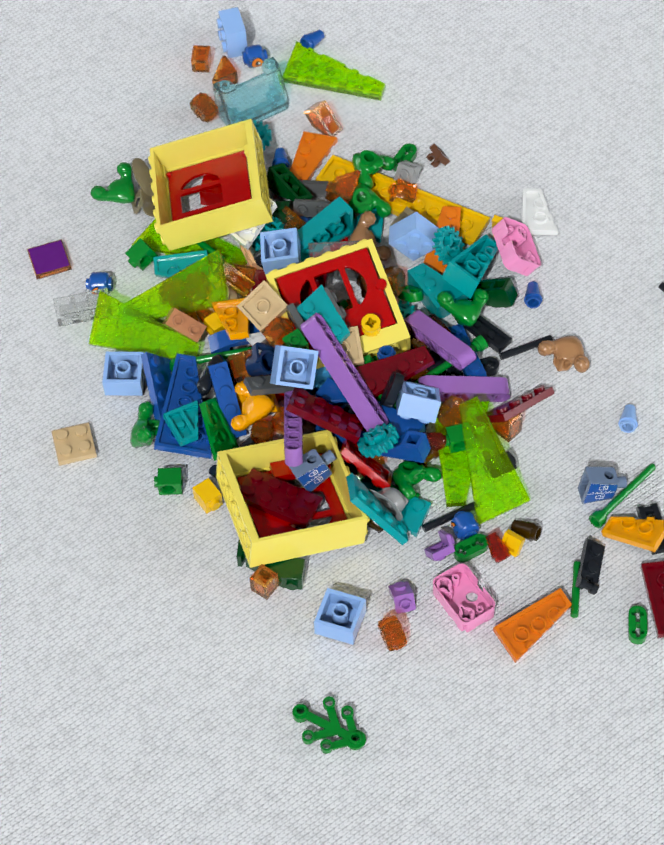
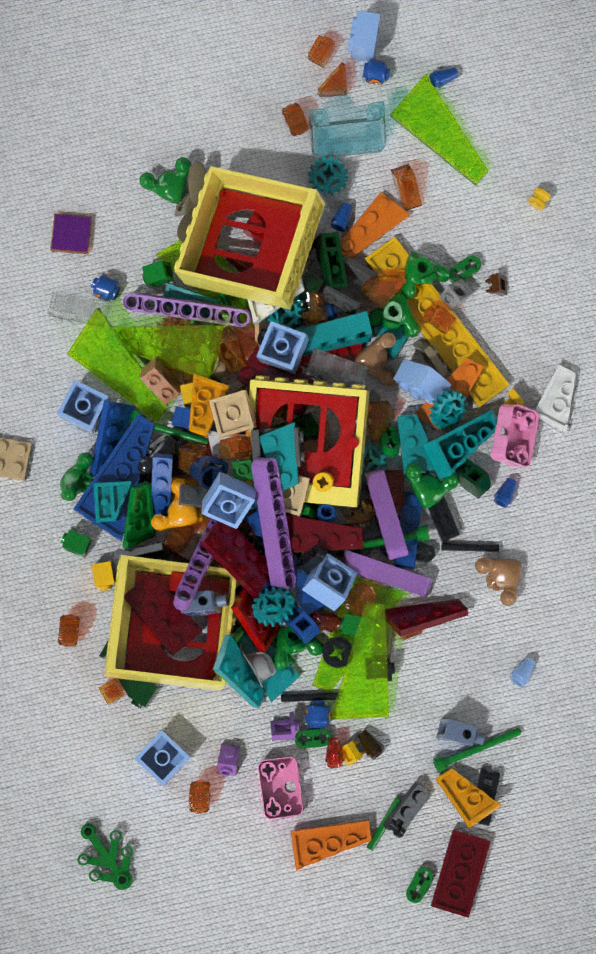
camera: 20 degrees right, 25 degrees up
(172, 264) = (179, 309): none -> medium lavender beam
(197, 549) = (68, 630): none -> clear orange gear
(438, 87) = (539, 198): none -> yellow wheel
(452, 459) = (328, 649): none -> black gear

